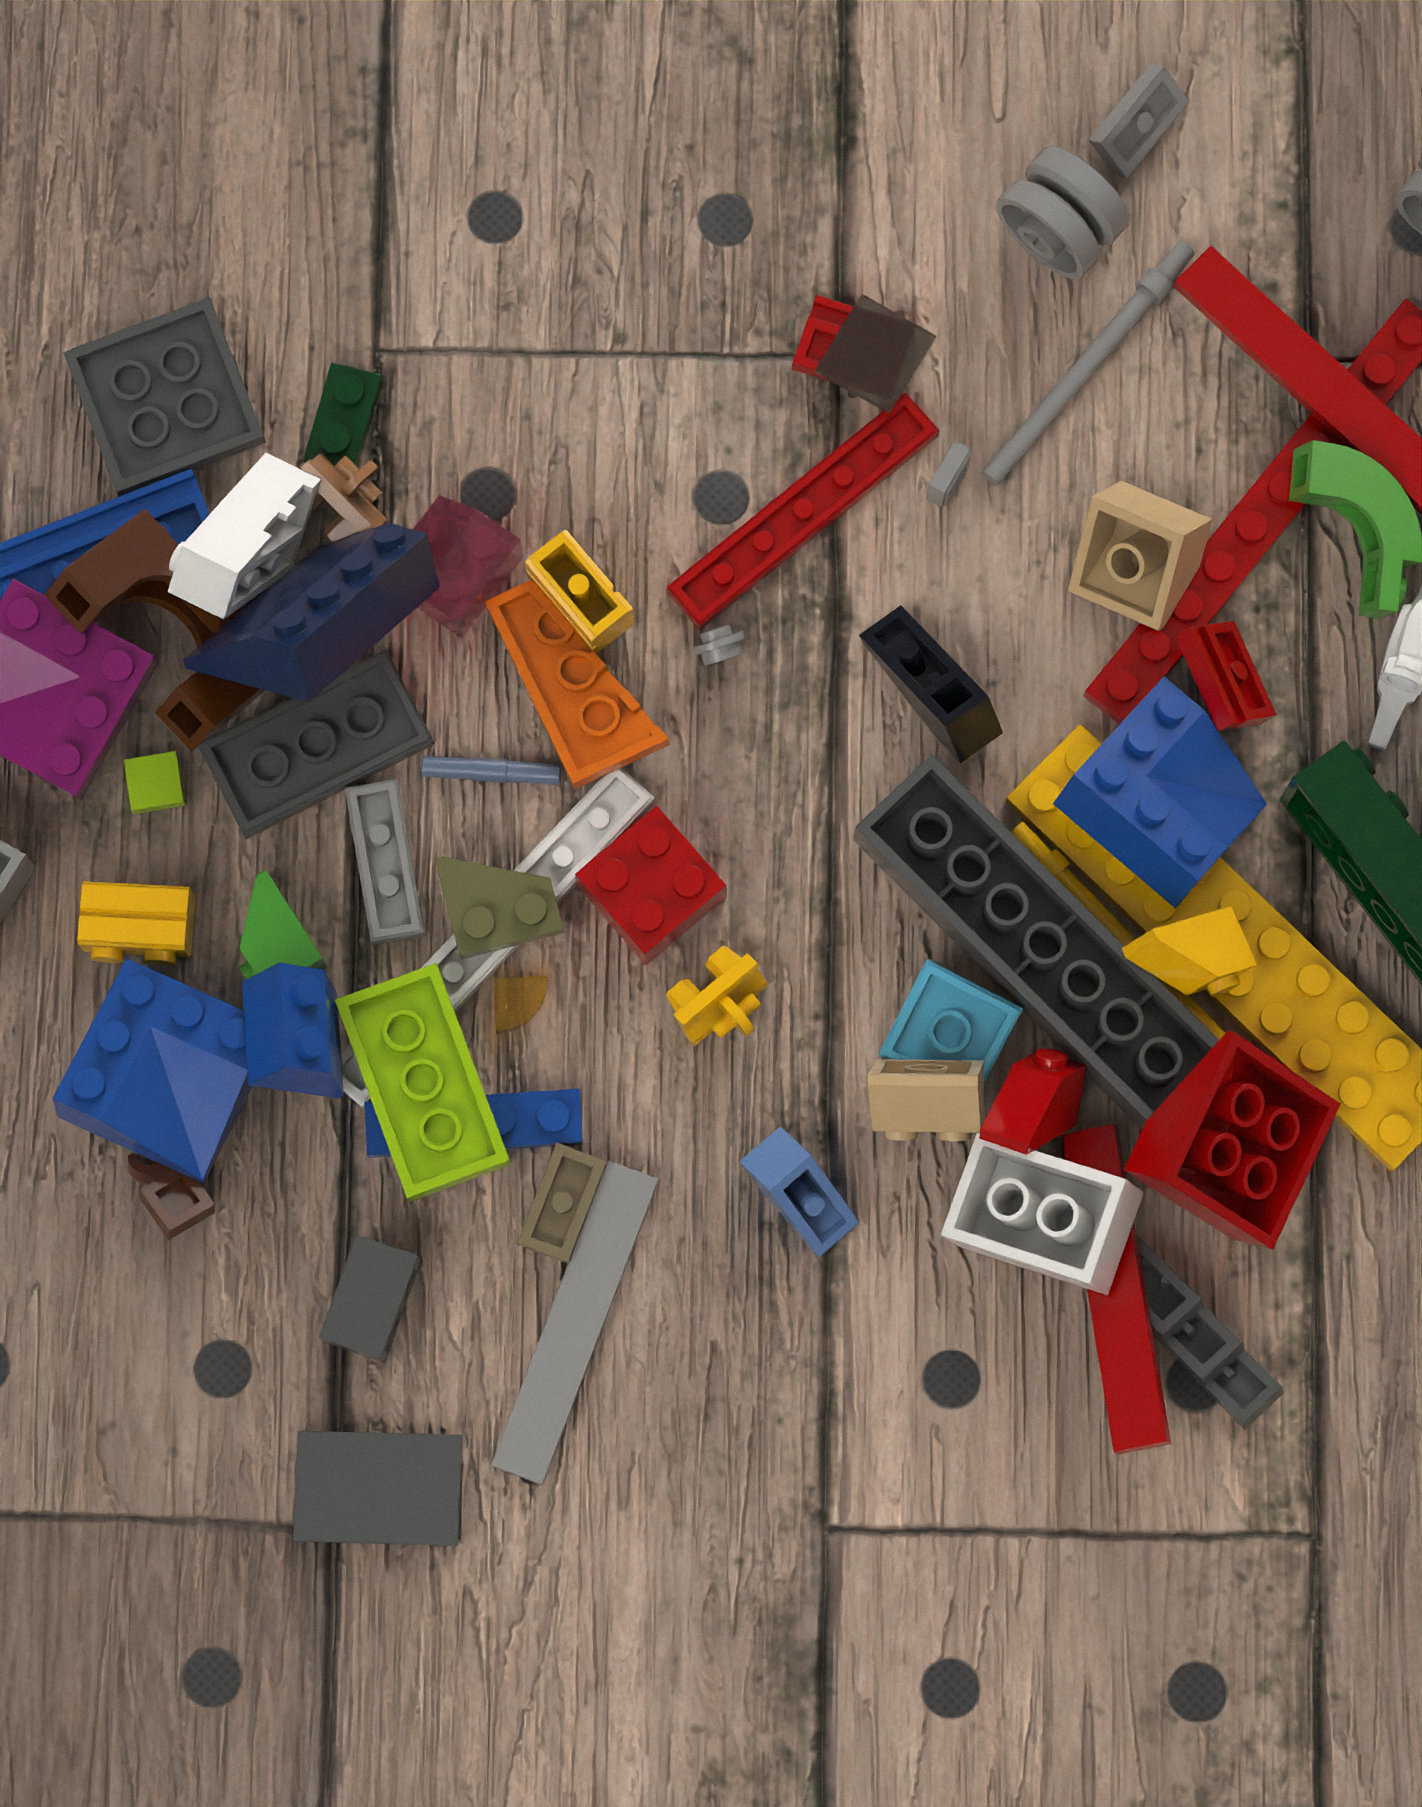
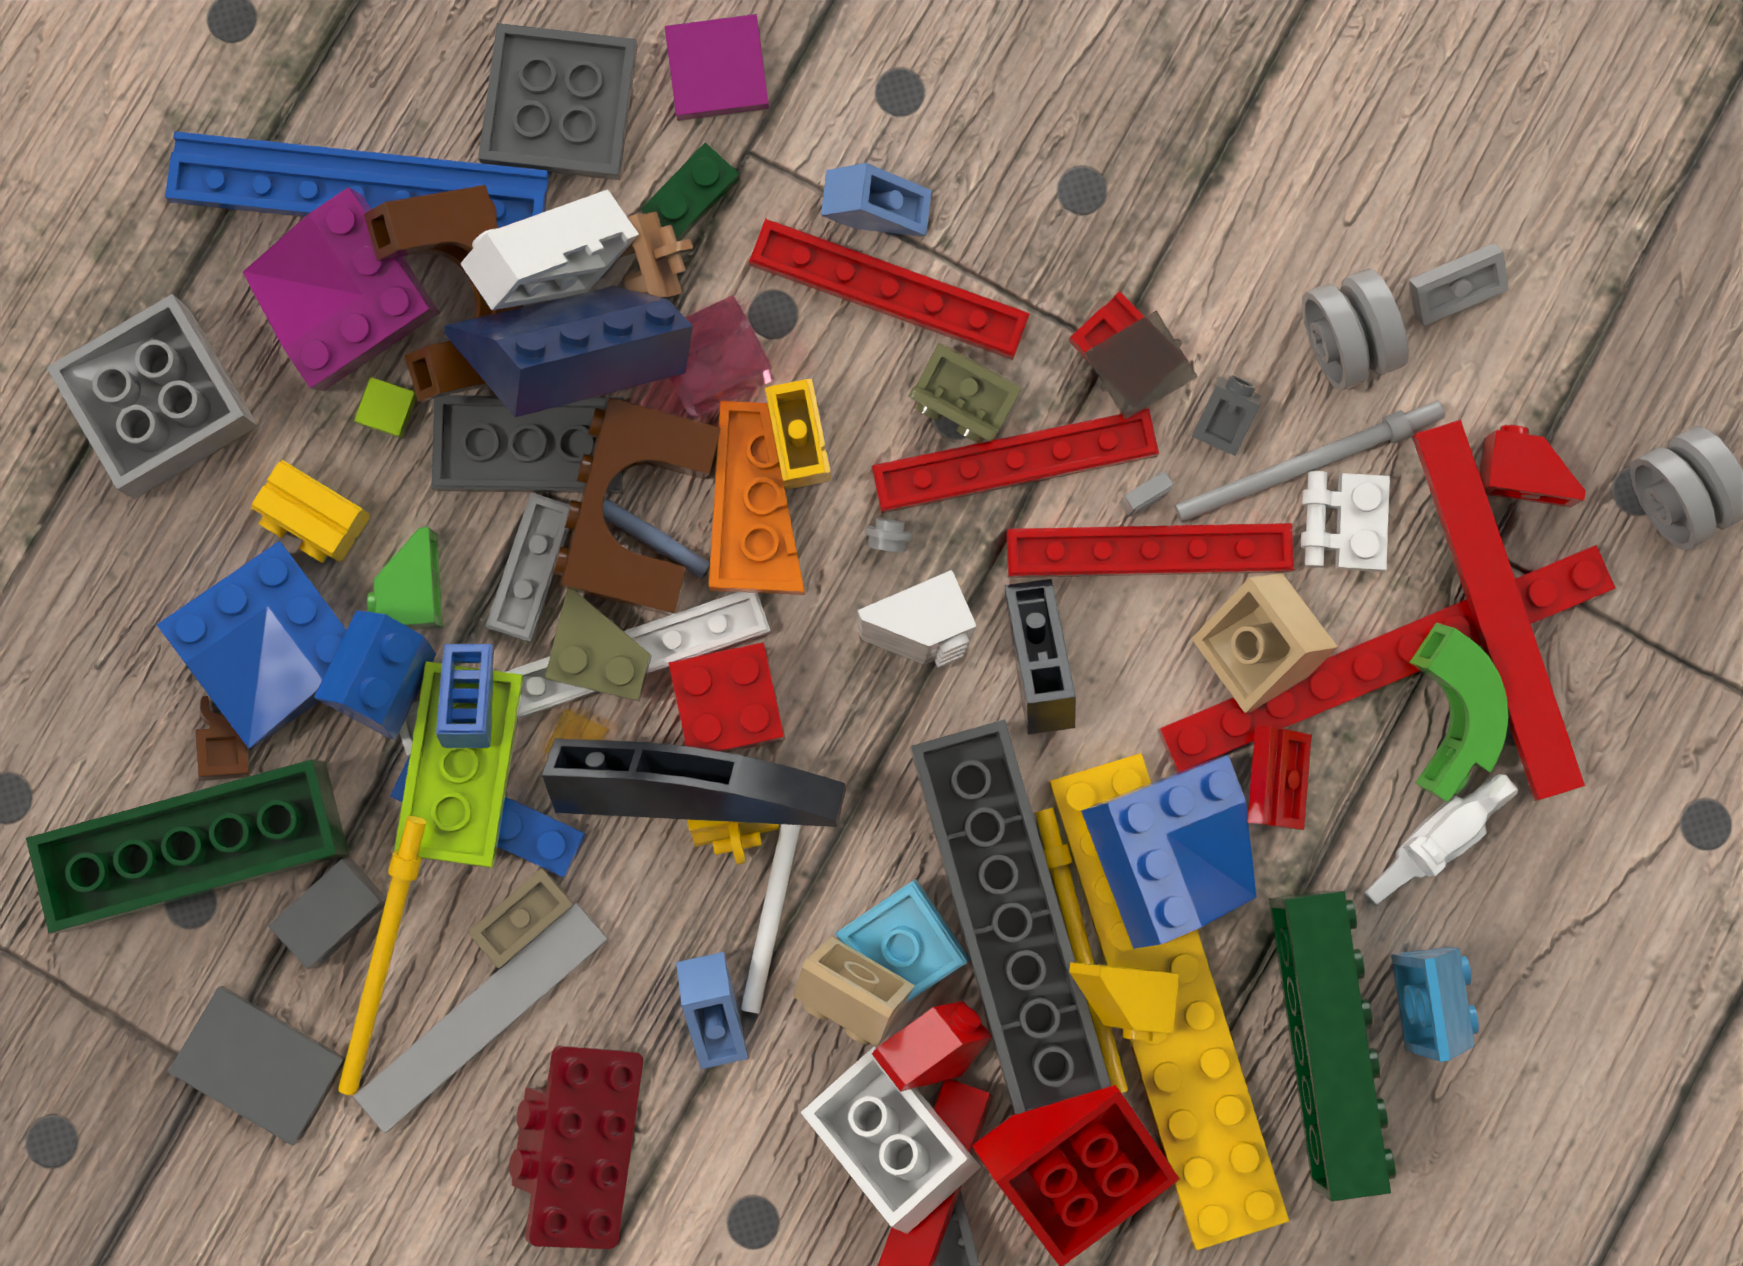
camera: 25 degrees right, 5 degrees up
(194, 1306) = (186, 846): none -> dark green brick
(302, 284) = (716, 67): none -> magenta tile
(409, 1039) = (466, 735): none -> blue slope
(426, 1202) = (403, 869): none -> yellow bar
(445, 814) = (628, 438): none -> reddish brown arch
(530, 331) = (875, 200): none -> medium blue slope
(589, 410) = (889, 289): none -> red tile
(654, 981) = (685, 784): none -> black slope
(720, 469) = (965, 394): none -> olive bracket
(739, 1392) = (578, 1147): none -> dark red bracket
(801, 700) = (921, 622): none -> white slope
(806, 1073) = (770, 918): none -> white bar
(980, 528) = (1149, 550): none -> red tile
(985, 358) = (1228, 414): none -> dark grey bracket
(1169, 394) = (1361, 521): none -> white plate
(1300, 261) = (1526, 469): none -> red slope

